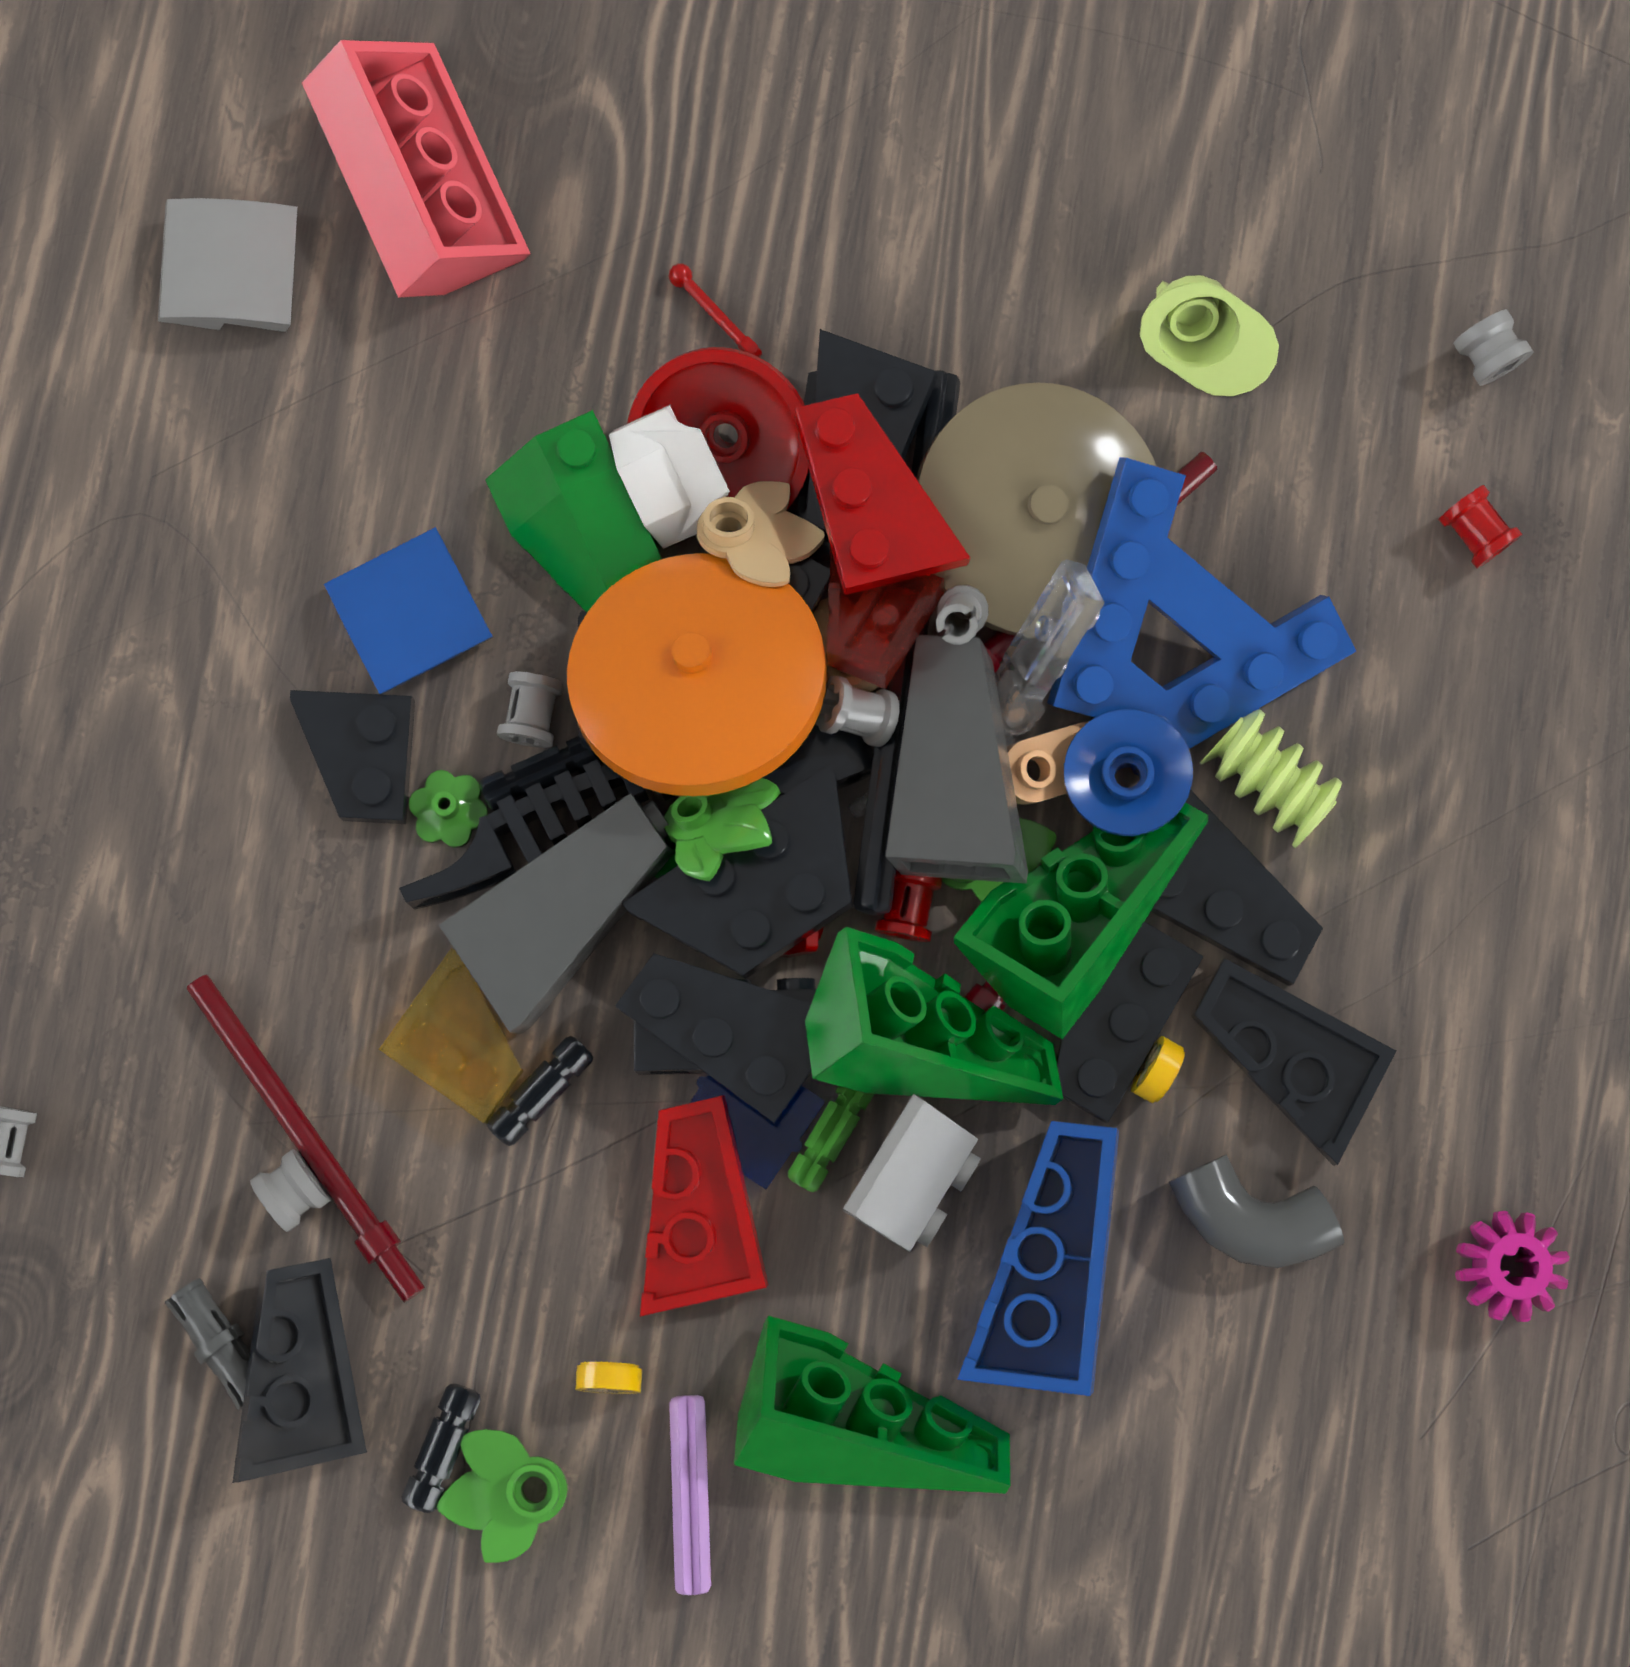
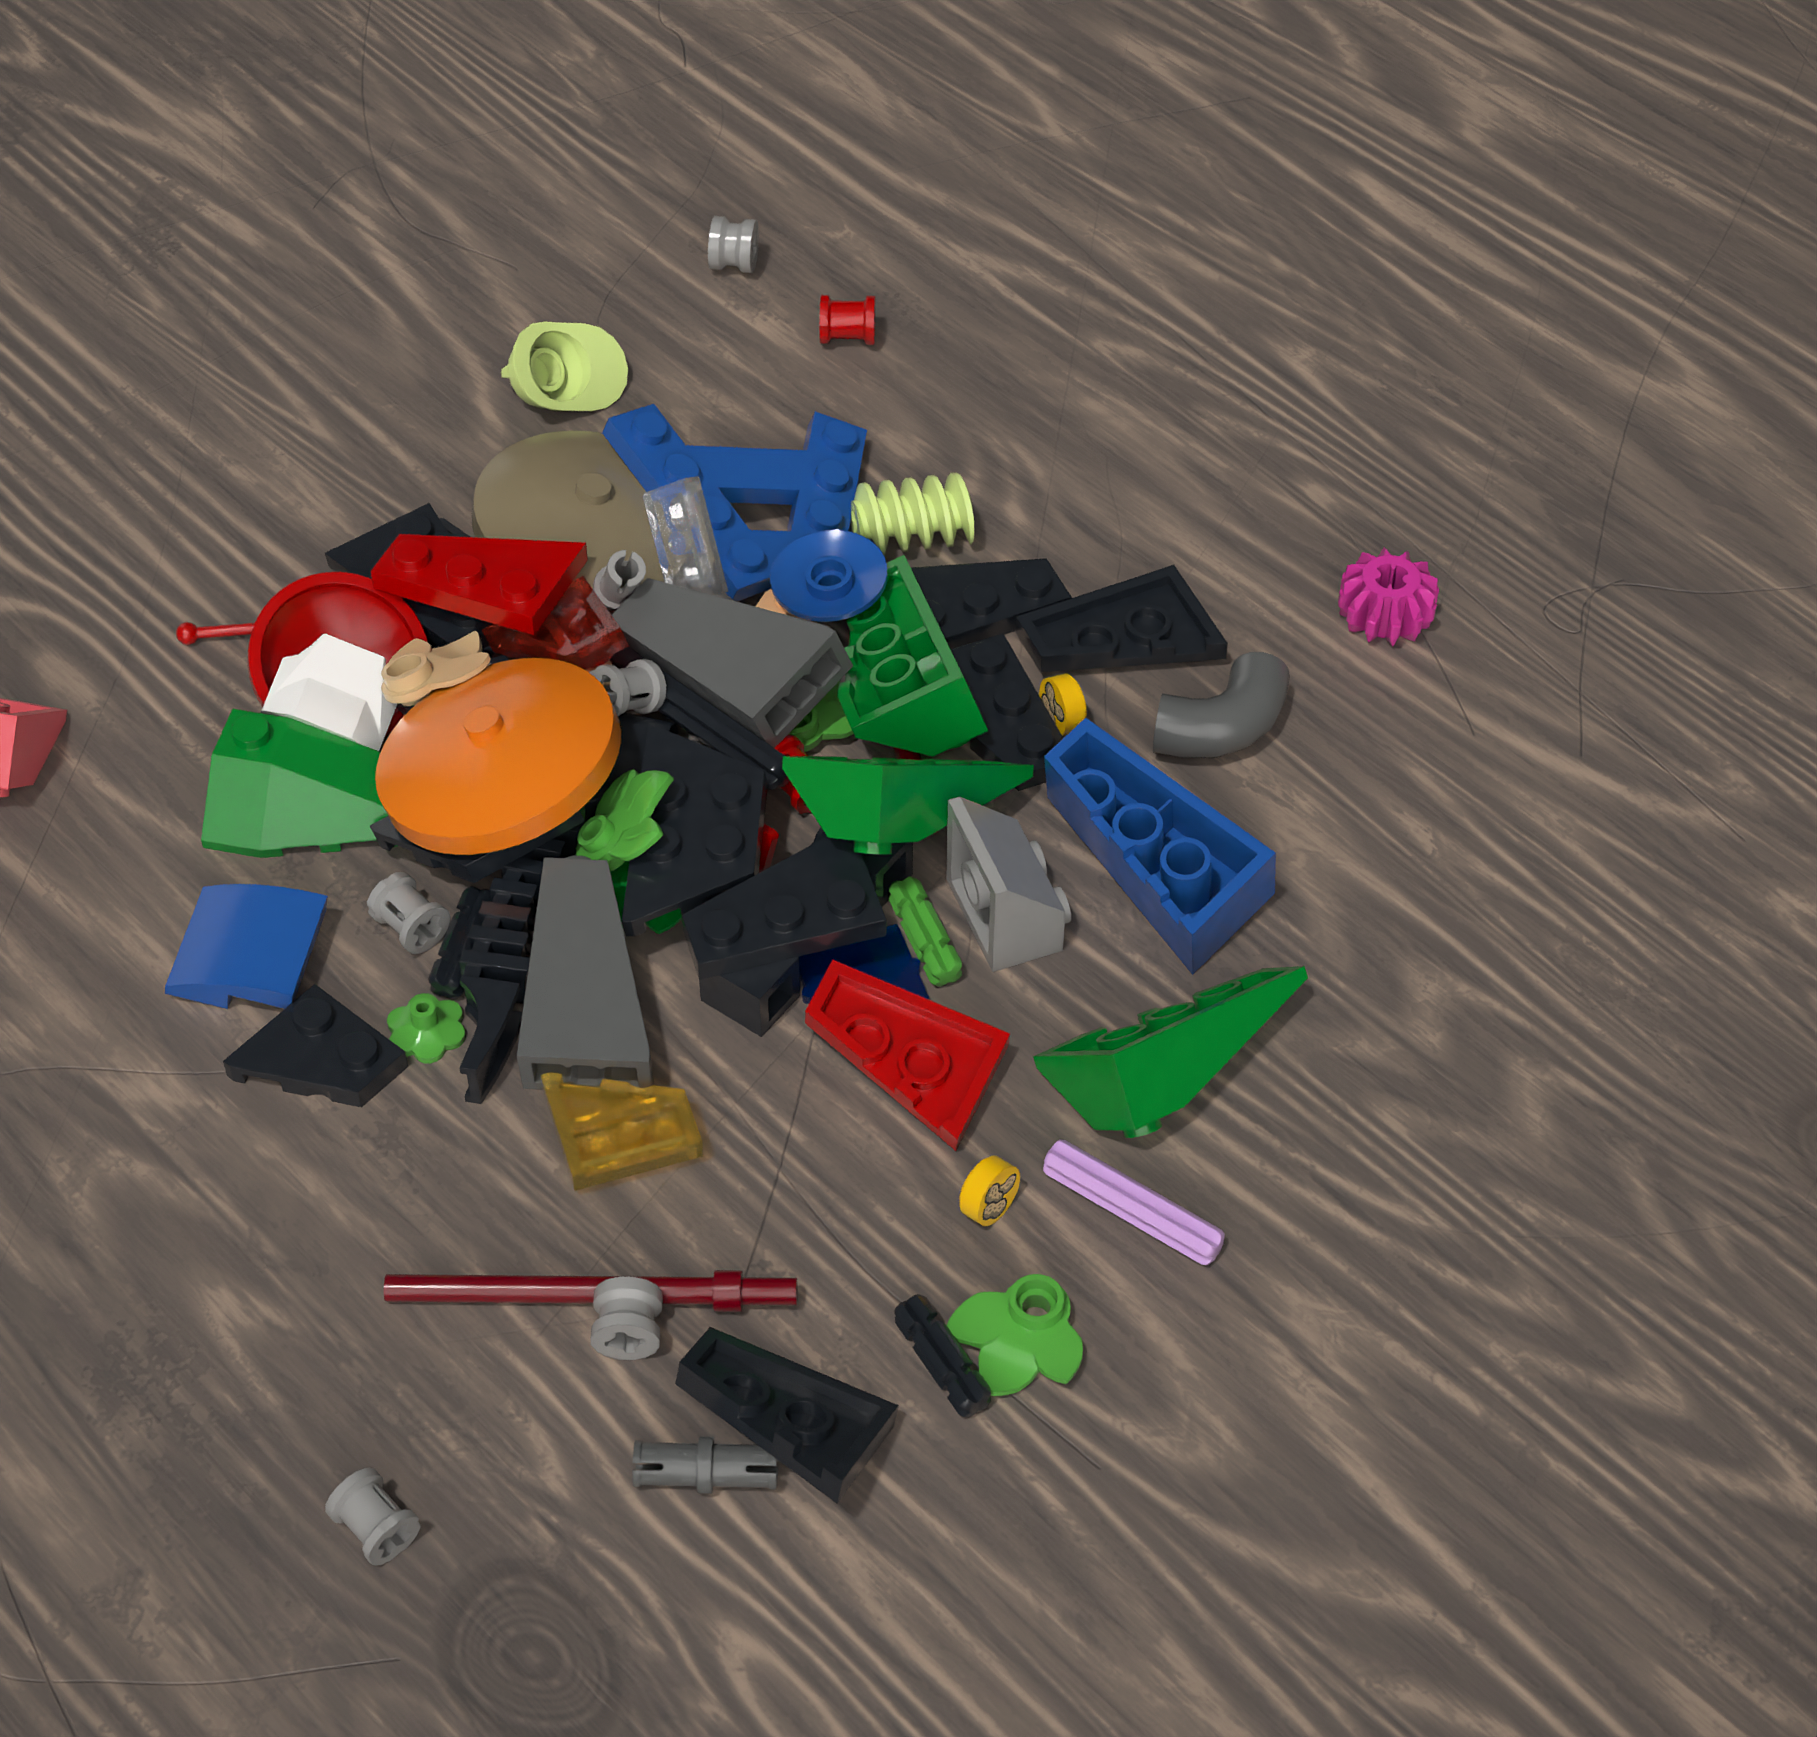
camera: 55 degrees left, 30 degrees down
(540, 1091) = (712, 1100): black axle -> none

